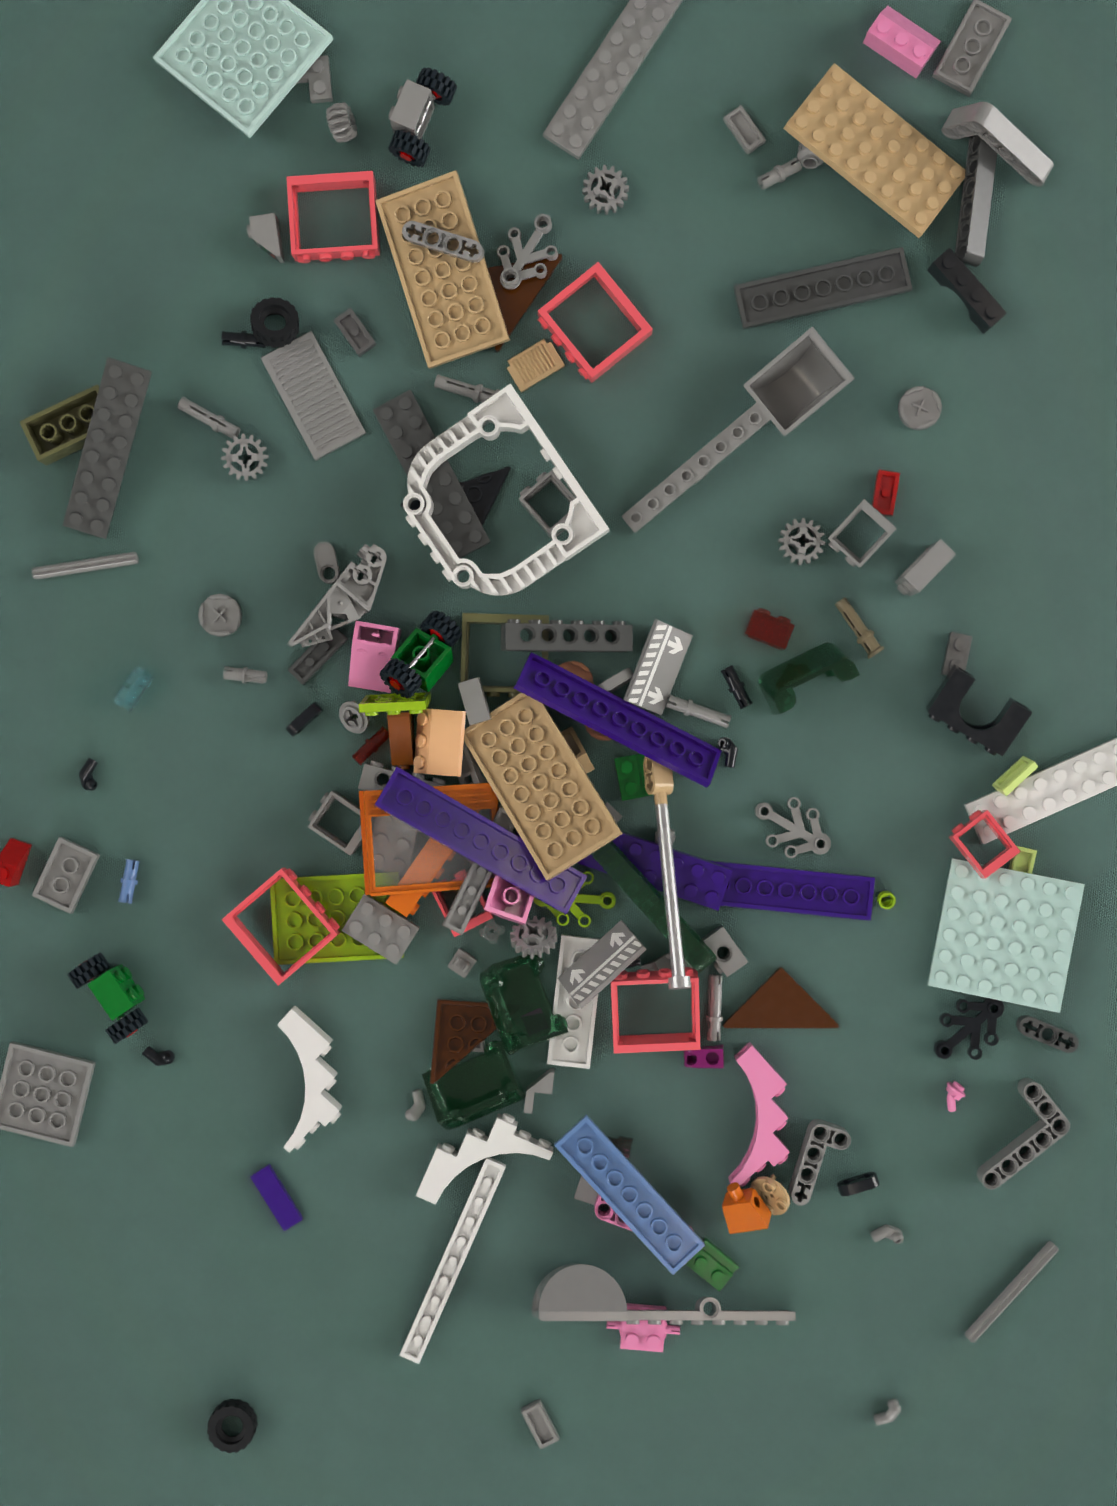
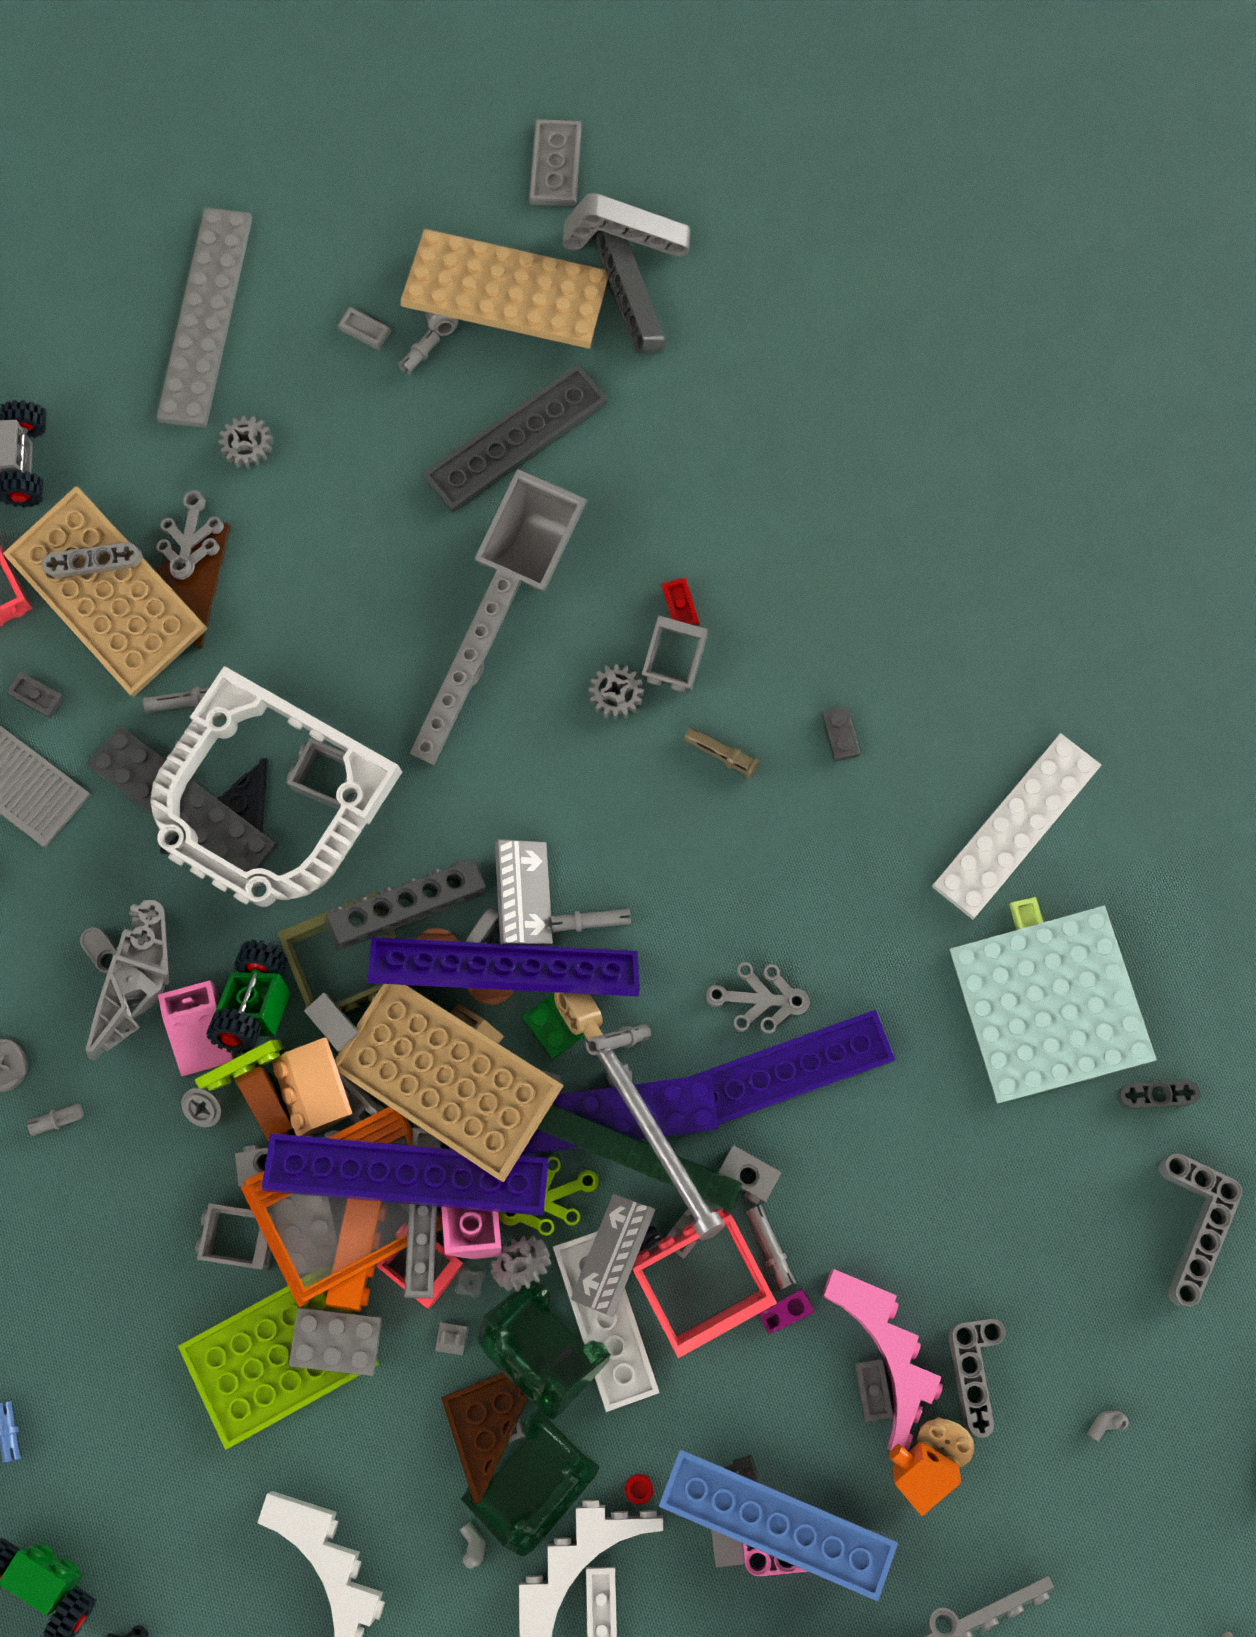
camera: 20 degrees left, 15 degrees down
(256, 949) = (190, 1437): coral window -> none
(304, 719) = (144, 1138): black beam -> none
(316, 656) = (132, 1059): dark grey tile -> none
(371, 745) = (236, 1131): clear red pin -> none
(534, 364) = (246, 643): tan window -> none
(542, 1084) = (614, 1439): light grey slope -> none
(545, 1123) = (639, 1489): none -> red tile
(620, 299) = (272, 522): coral window -> none
(682, 813) = (625, 1037): none -> light grey pin
(713, 1265) = (922, 1569): green plate -> none
(729, 750) = (647, 947): black arm -> none
(736, 687) = (620, 875): black pin -> none
(738, 1136) = (873, 1390): none -> flat silver plate
(769, 629) = (625, 797): clear red brick -> none
(779, 681) = (664, 848): clear green windscreen -> none
(780, 1004) = (845, 1207): reddish brown tile -> none
(858, 1184) = (1041, 1378): black beam -> none
(886, 903) = (905, 1032): lime hinge -> none
(901, 41) = (482, 186): bright pink slope -> none
(919, 408) = (674, 508): light grey tile -> none
(924, 568) = (759, 658): light grey window -> none
(952, 273) = (640, 366): black arch -> none
(955, 1091) = (1093, 1211): bright pink plate -> none
(972, 1026) = (1071, 1126): black plant -> none
(995, 735) = (925, 795): black arch -> none
(999, 860) = (983, 893): coral window -> none
(1015, 775) = (968, 828): yellowish green tile -> none

